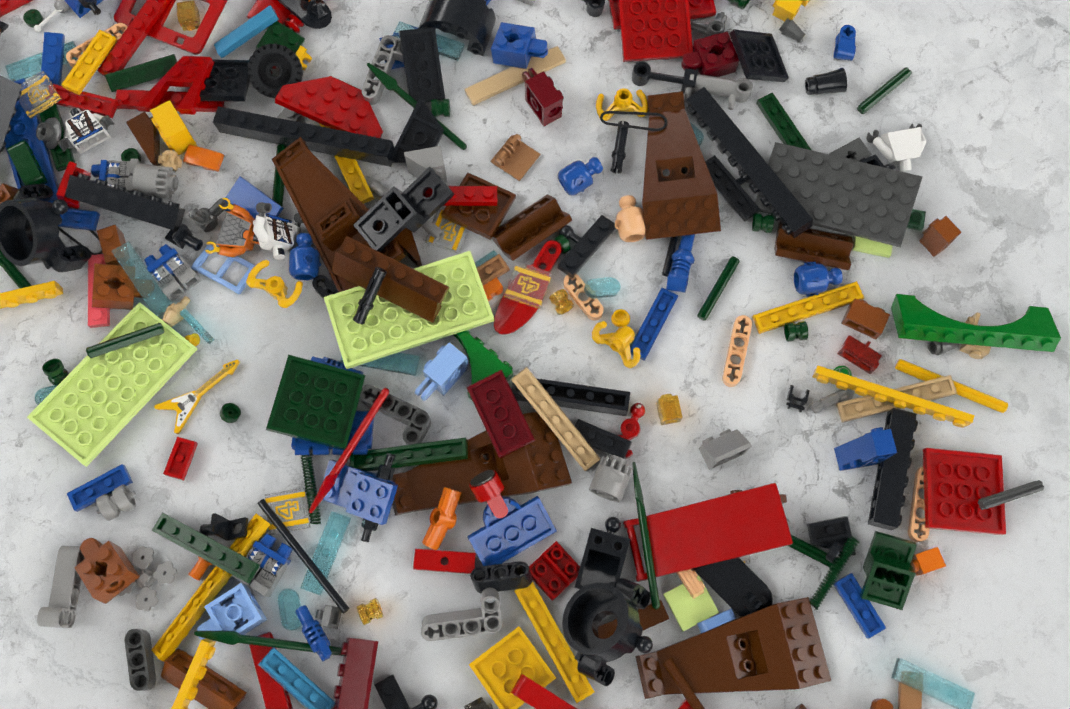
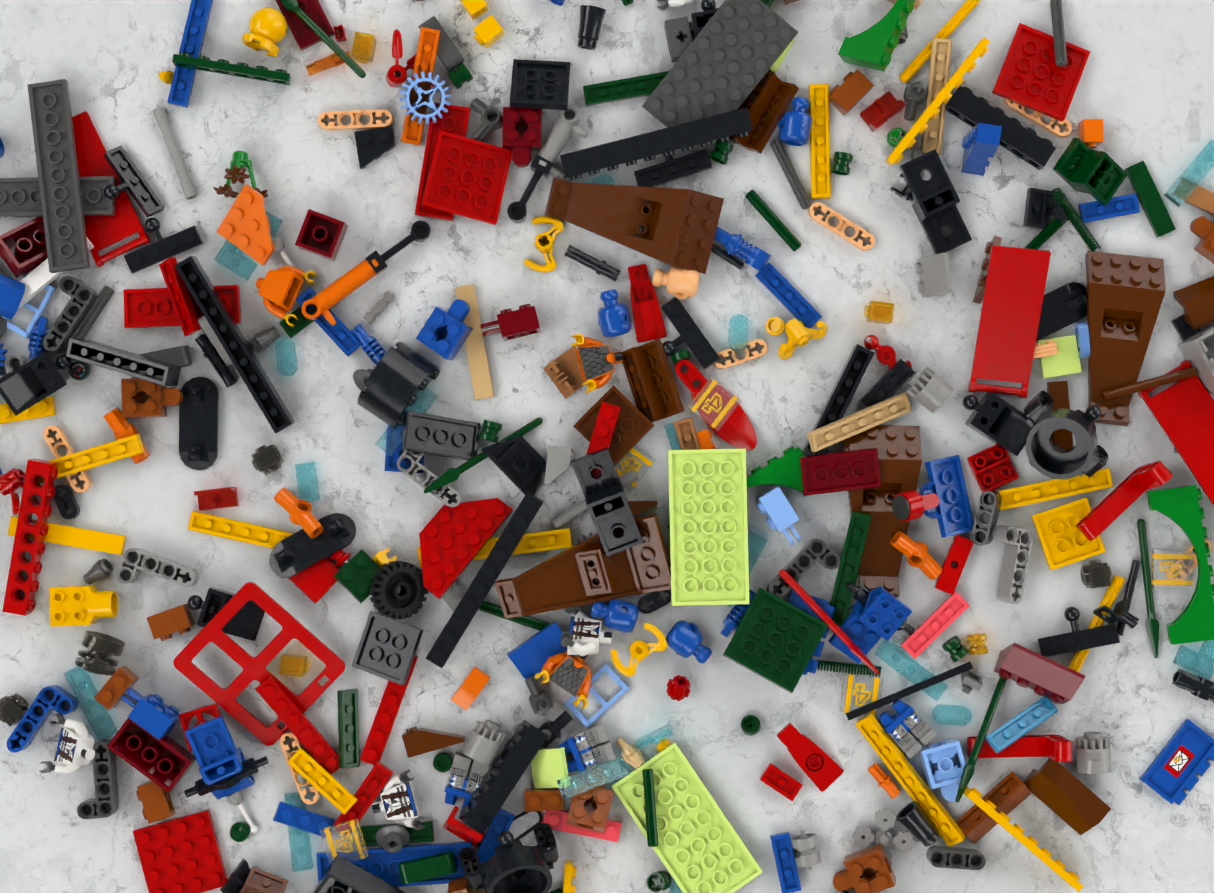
camera: 75 degrees left, 15 degrees up
(147, 241) = (549, 767): none -> yellowish green tile
(167, 608) = (917, 823): none -> black plant
(170, 159) = (464, 723): tan gear -> none
(172, 128) = (431, 710): yellow brick -> none
(186, 403) = (725, 763): yellow piece -> none
(187, 72) = (370, 680): red wing -> none
(206, 548) = (877, 776): dark green plate -> none
(212, 479) = (810, 757): none -> red piece
(224, 528) = (861, 756): black bracket -> none
(246, 31) = (337, 608): dark azure tile -> none
(248, 334) = (678, 688): none -> red gear
(295, 328) = (686, 641): none -> blue piece
(314, 633) = (984, 698): blue hinge -> none
(358, 589) = (955, 648): none -> dark green wheel
(369, 296) = (698, 566): black pin -> none
(377, 561) = (934, 625): none -> coral plate
(400, 285) = (678, 536): reddish brown slope -> none
(532, 171) = (595, 361): none -> torso
(561, 301) = (740, 377): clear yellow wheel -> none
(597, 202) = (645, 306): none -> red piece
(633, 113) = (561, 235): black piece -> none
(645, 540) = (993, 377): dark green piece -> none
(767, 290) = (790, 174): none -> dark grey axle
(792, 30) = (515, 37): dark grey cone -> none
(795, 426) = (935, 202): none -> black bracket
(886, 647) = (1150, 199): none -> dark green tile
(887, 377) = (914, 96): none -> dark grey axle

